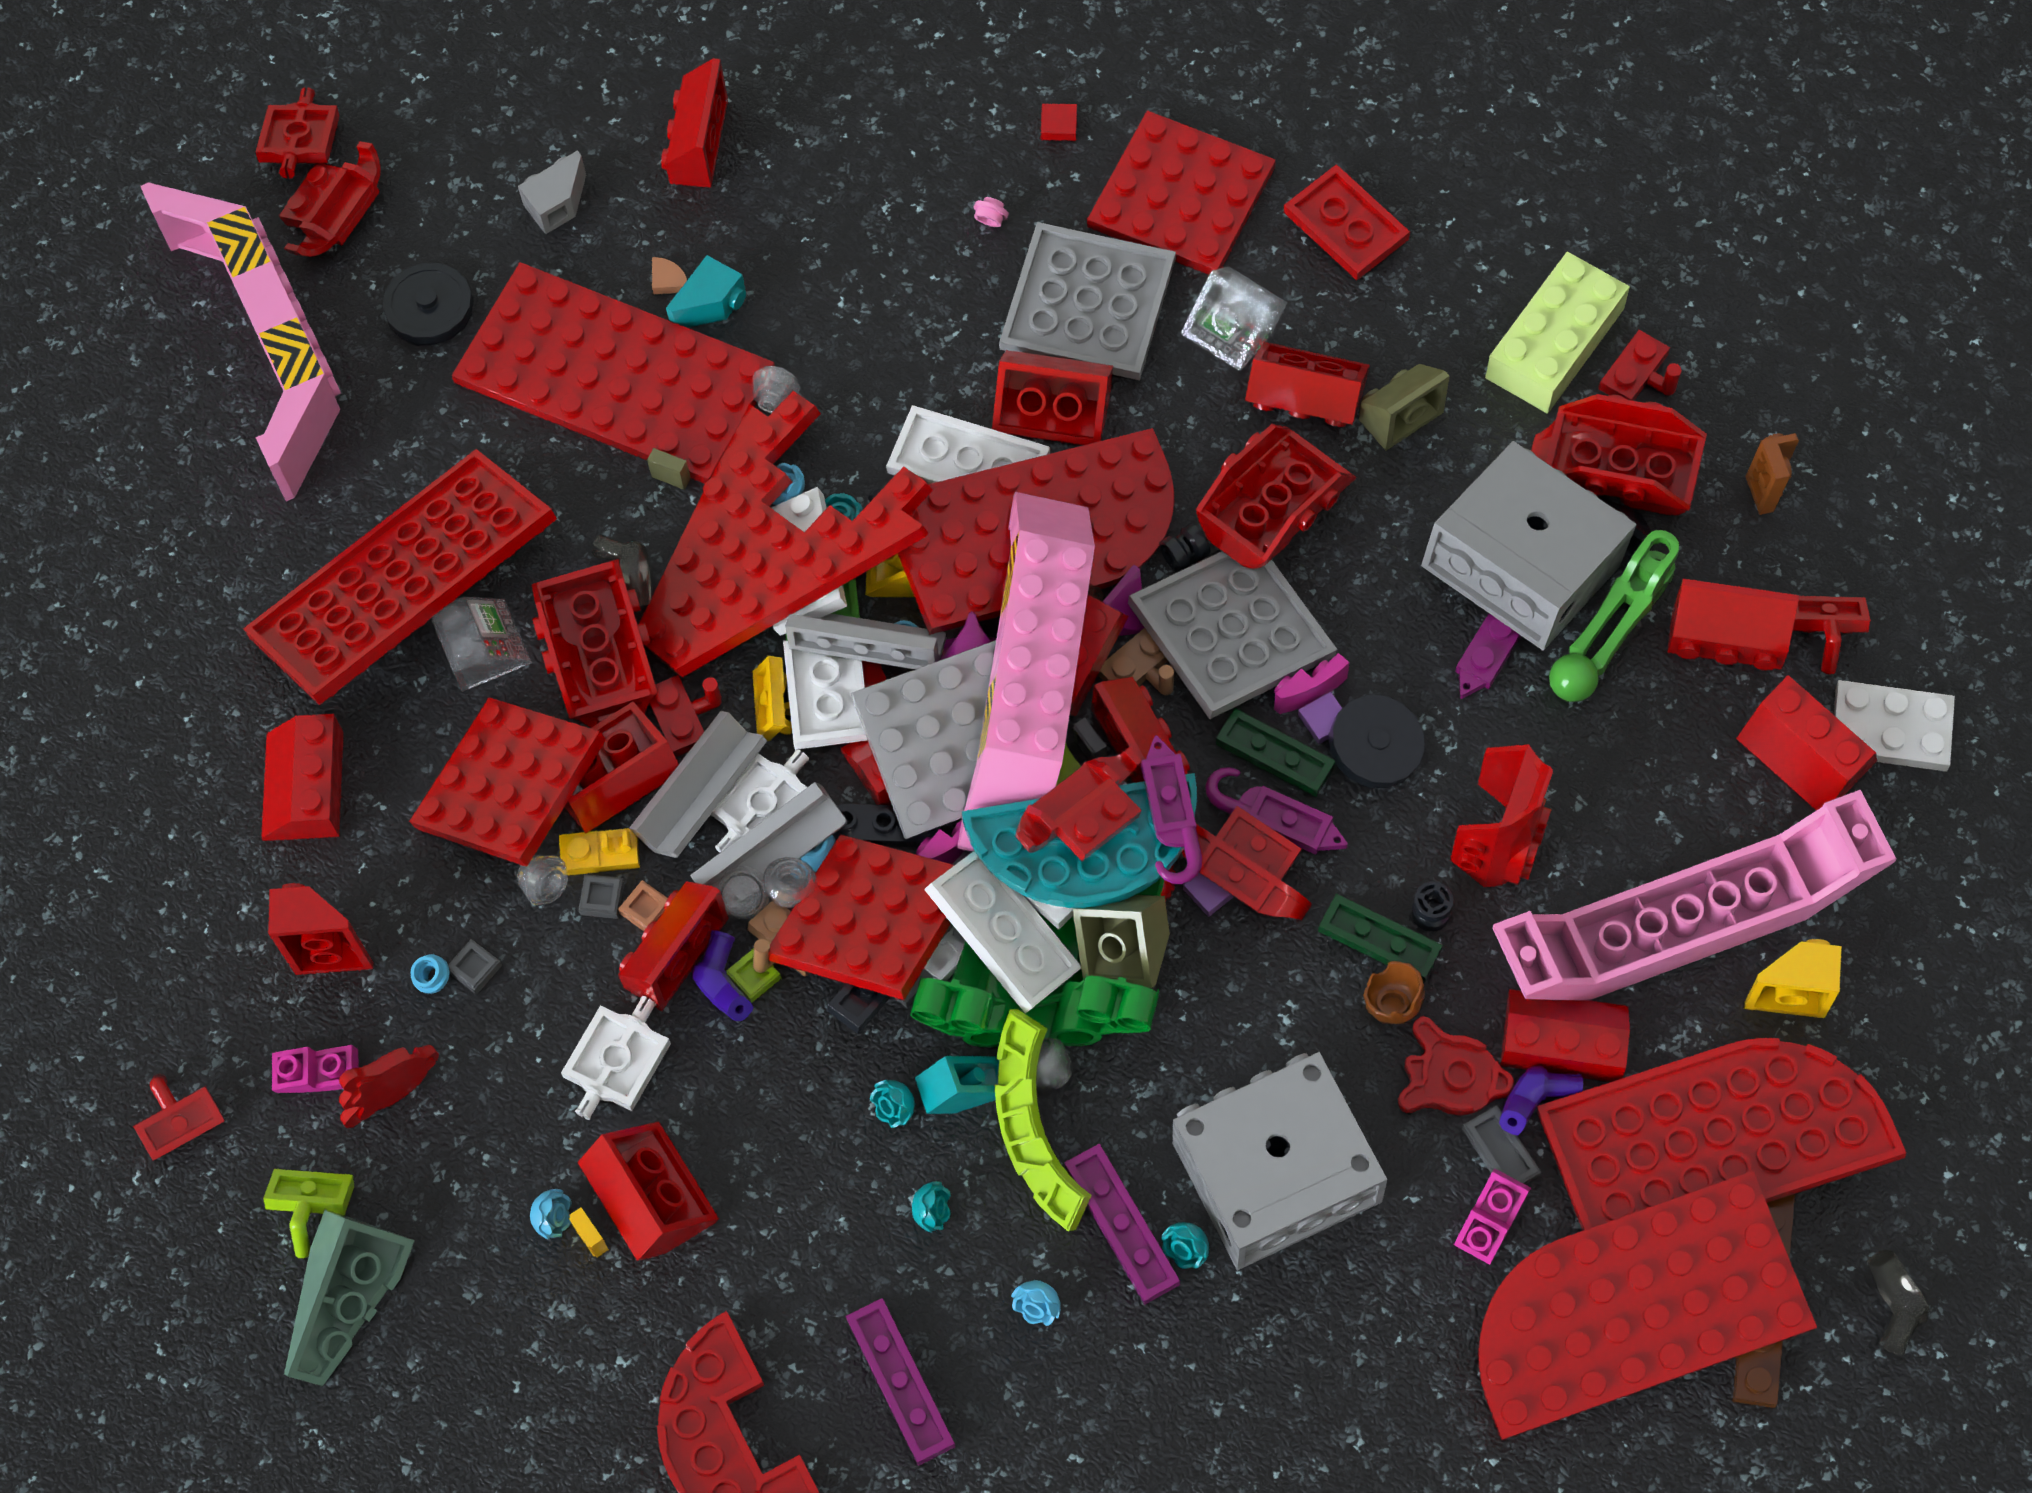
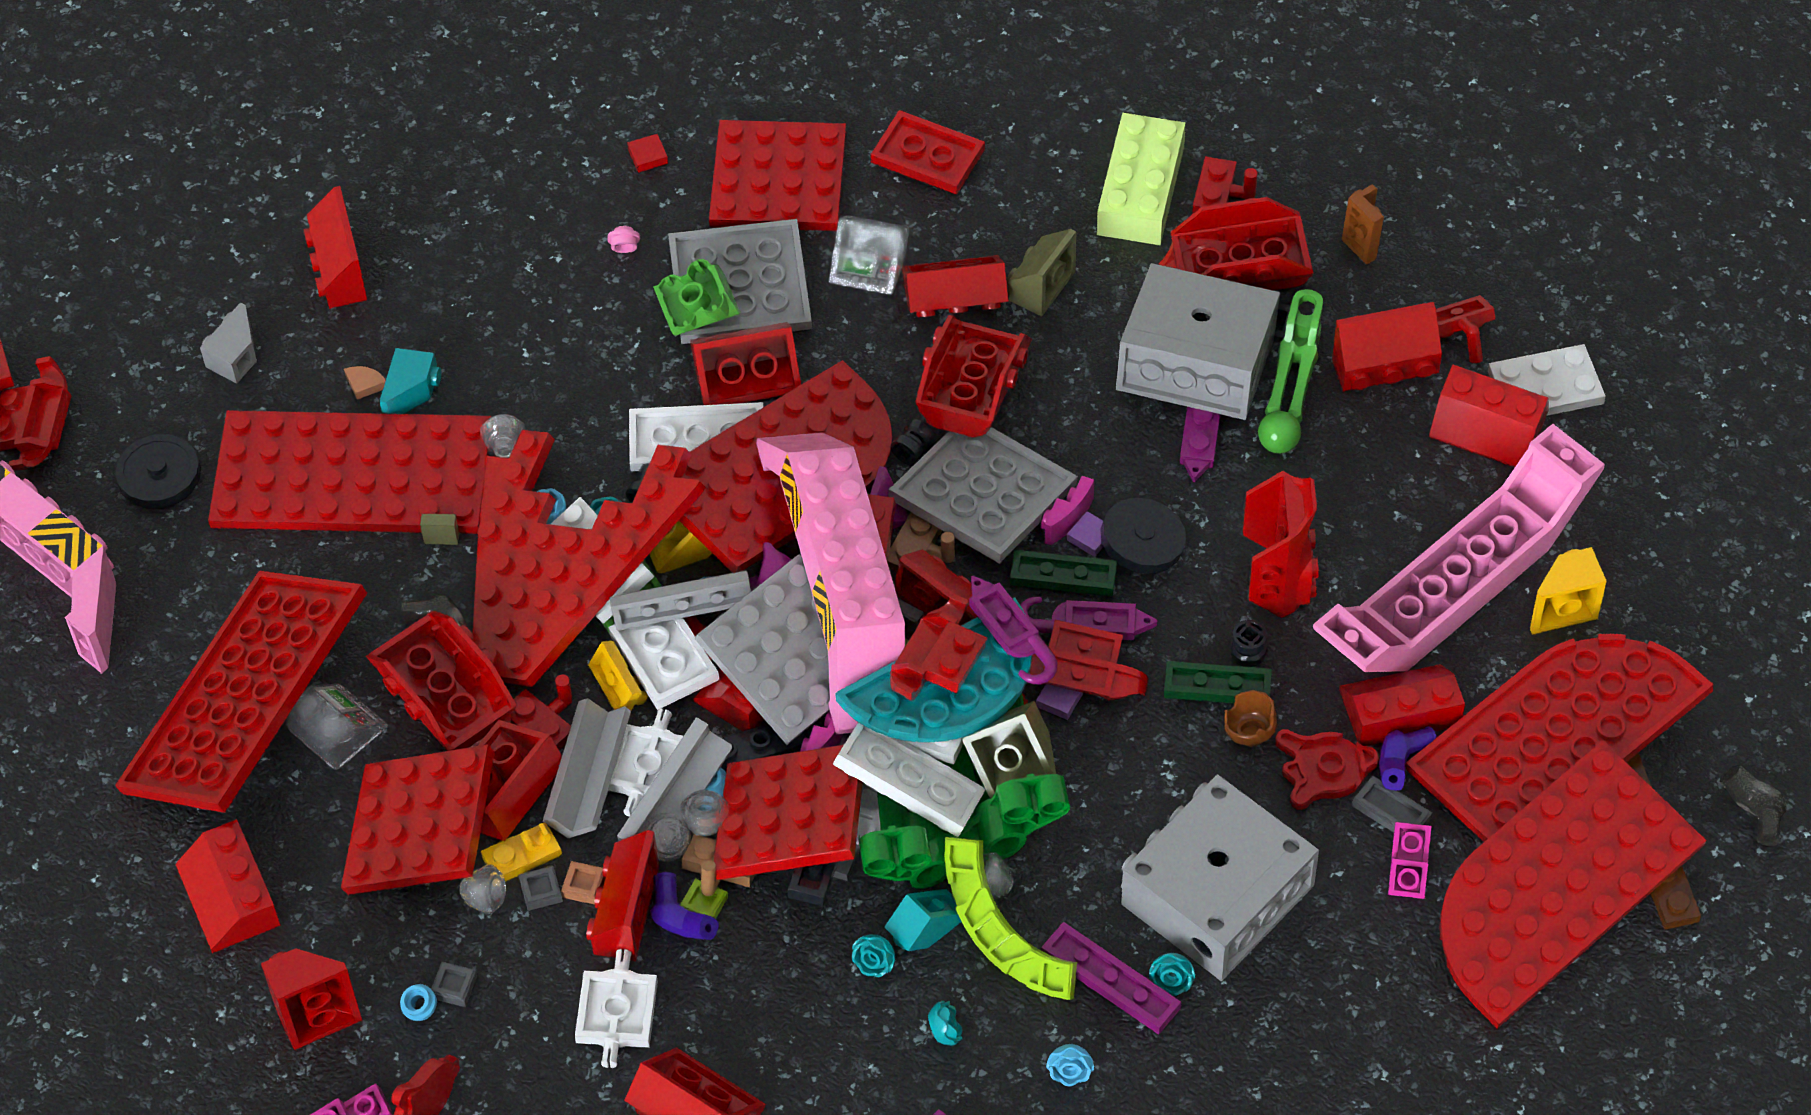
camera: 25 degrees left, 10 degrees down
(1031, 307) = (696, 297): none -> bright green slope

